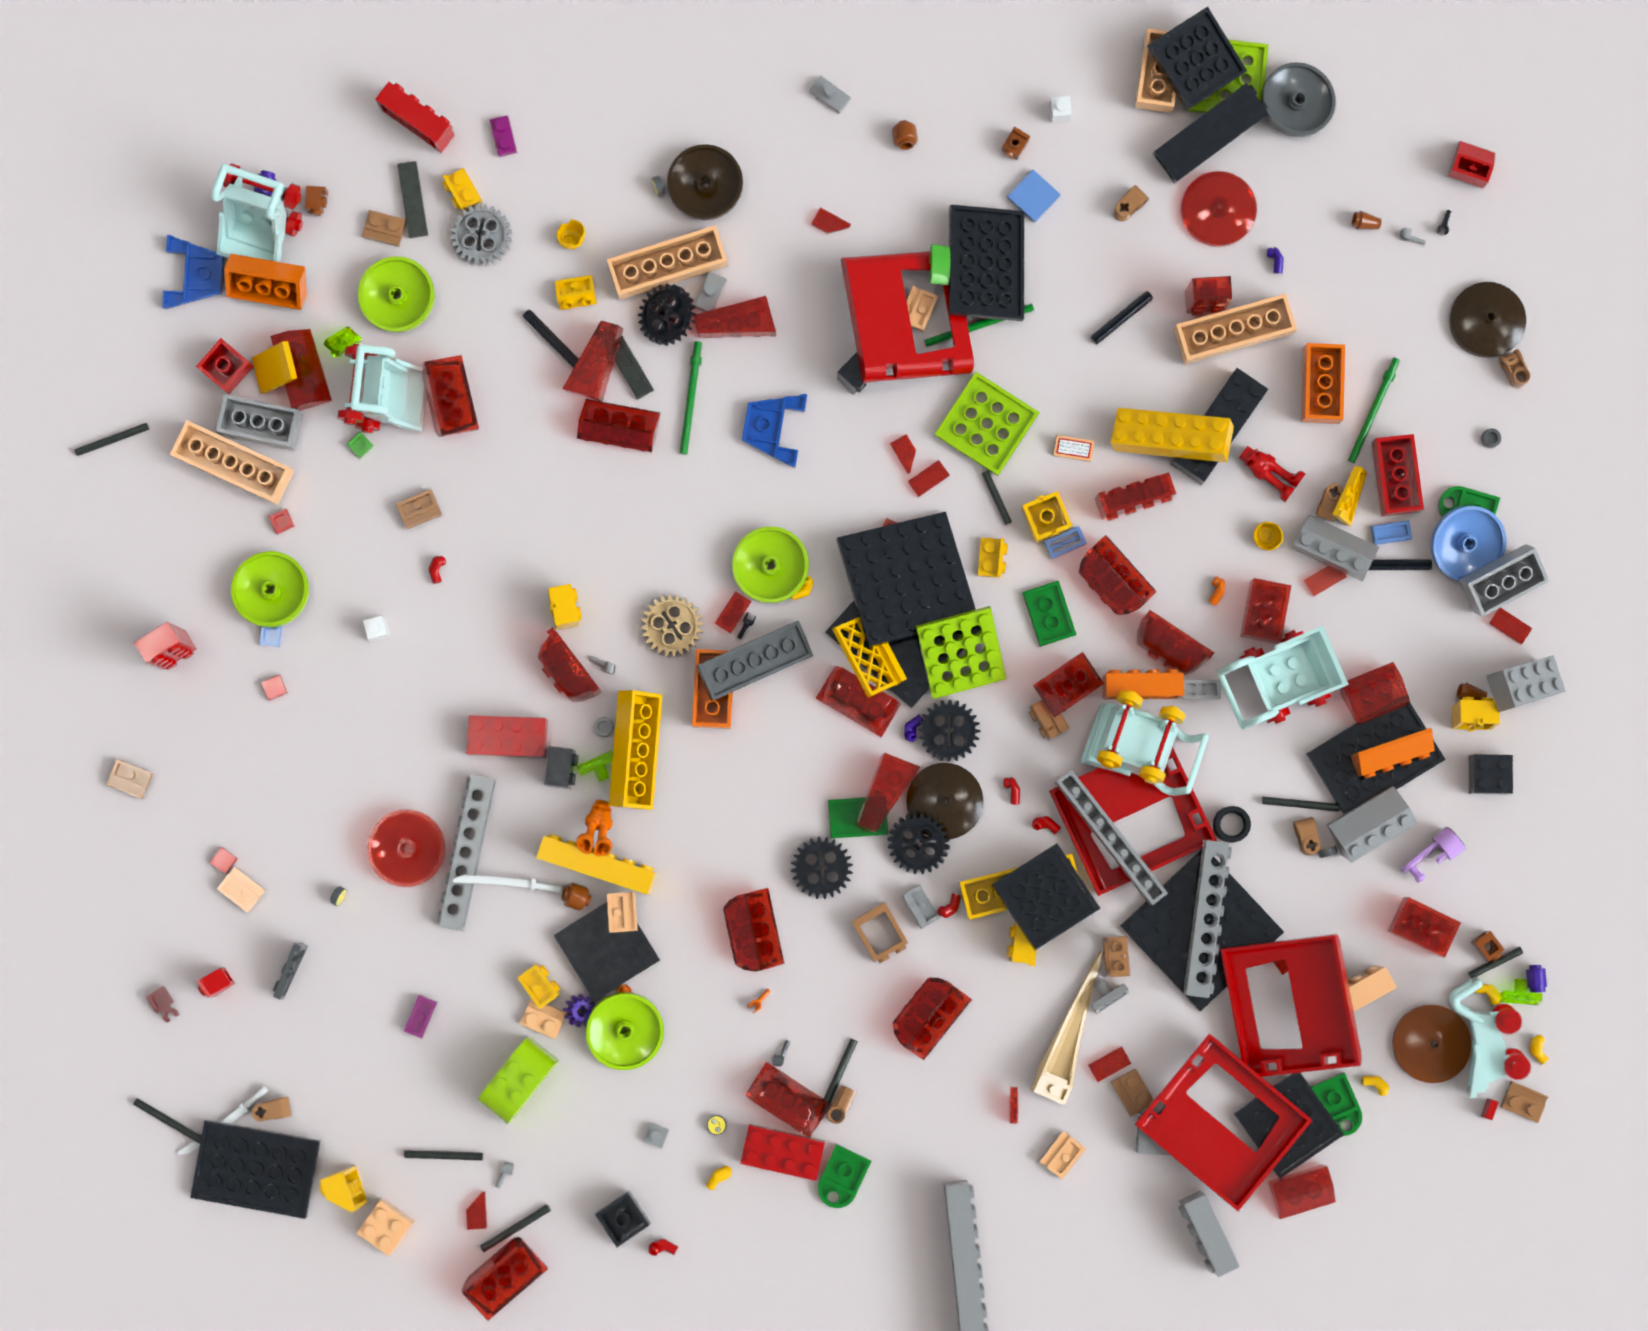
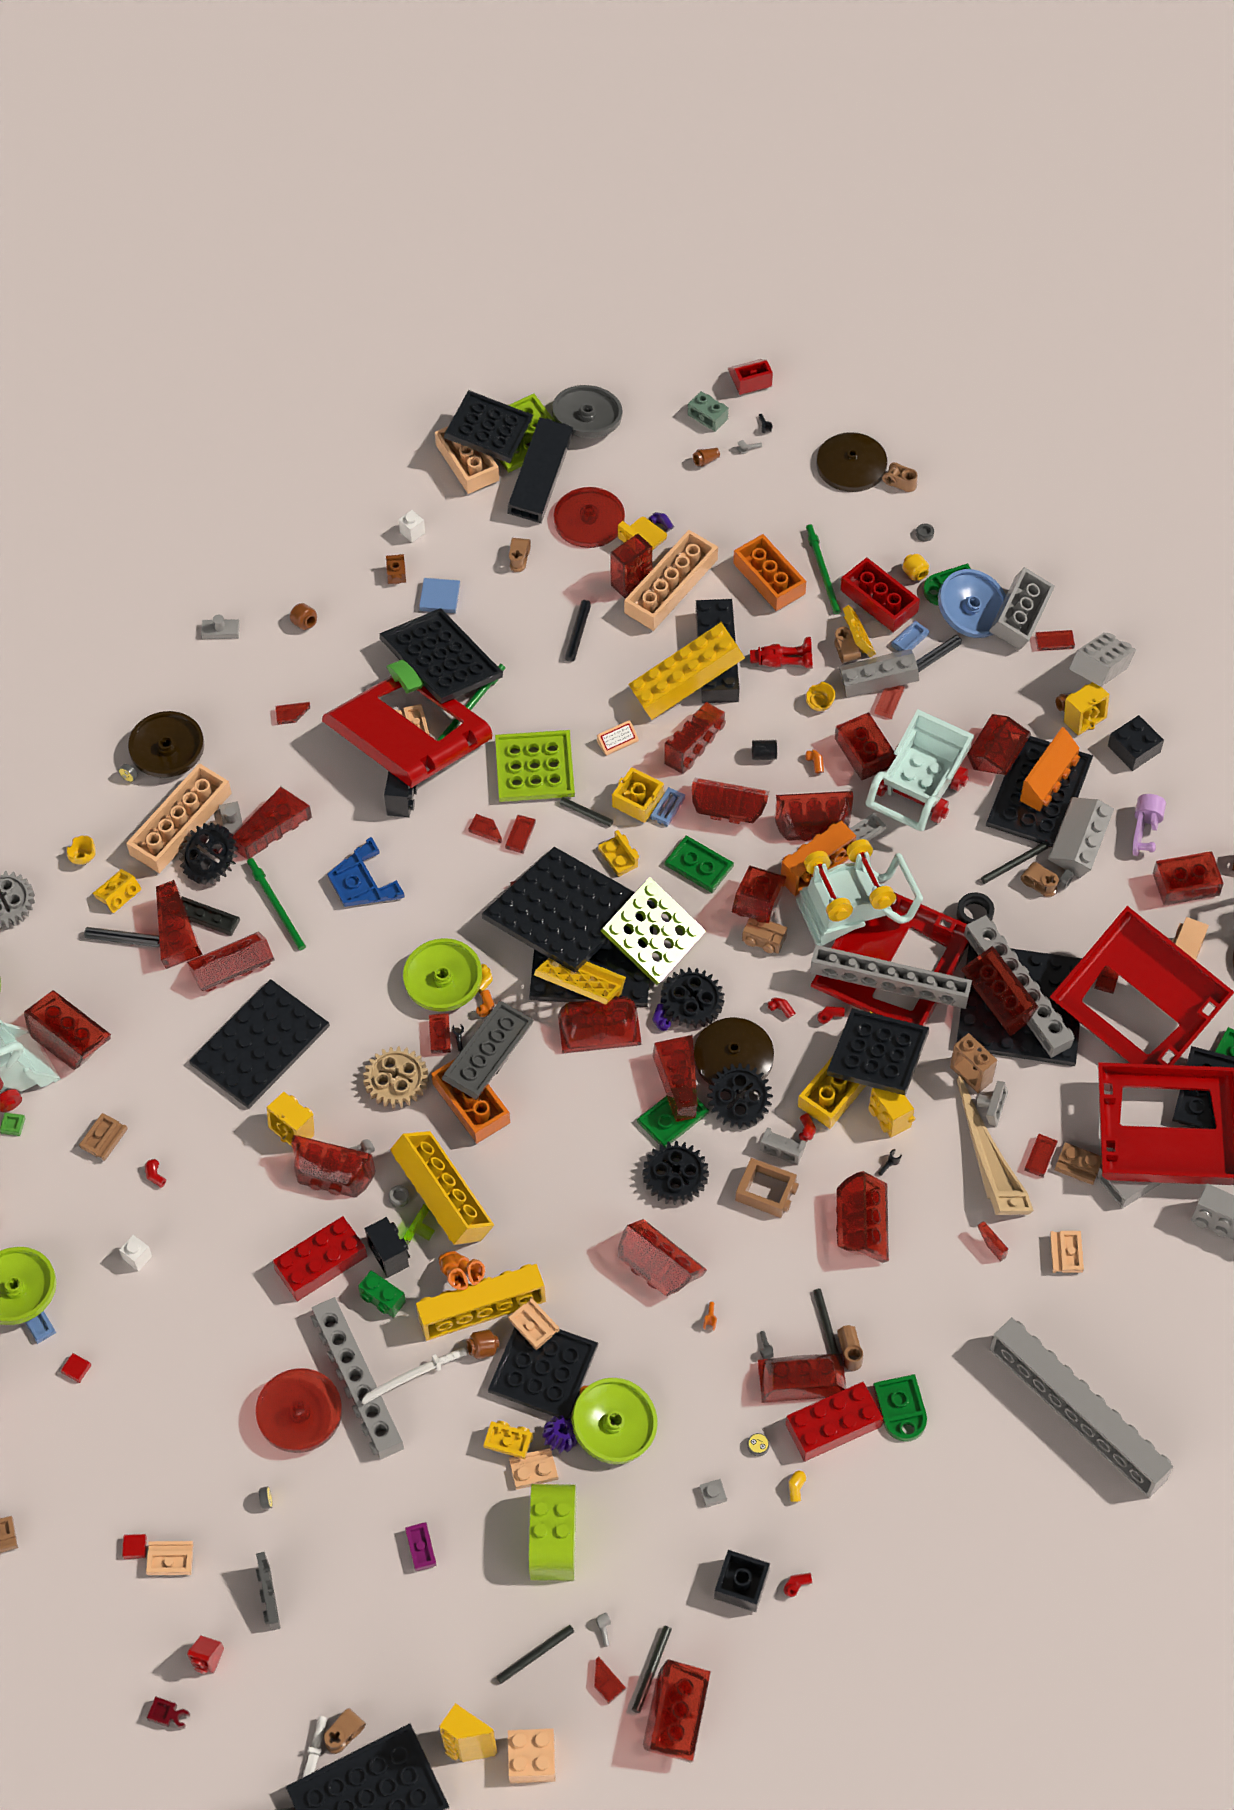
camera: 35 degrees left, 25 degrees down
(531, 800) = (381, 1294): none -> green brick
(591, 515) = (259, 1043): none -> black plate
(787, 615) = (487, 1005): none -> orange arm
(989, 982) = (891, 1161): none -> black hand
(1183, 550) = (764, 749): none -> black piece
(1184, 915) = (1000, 990): none -> clear red slope
(1247, 263) = (645, 528): none -> yellow bracket
(1405, 175) = (708, 411): none -> sand green brick
(1451, 469) = (915, 567): none -> yellow head

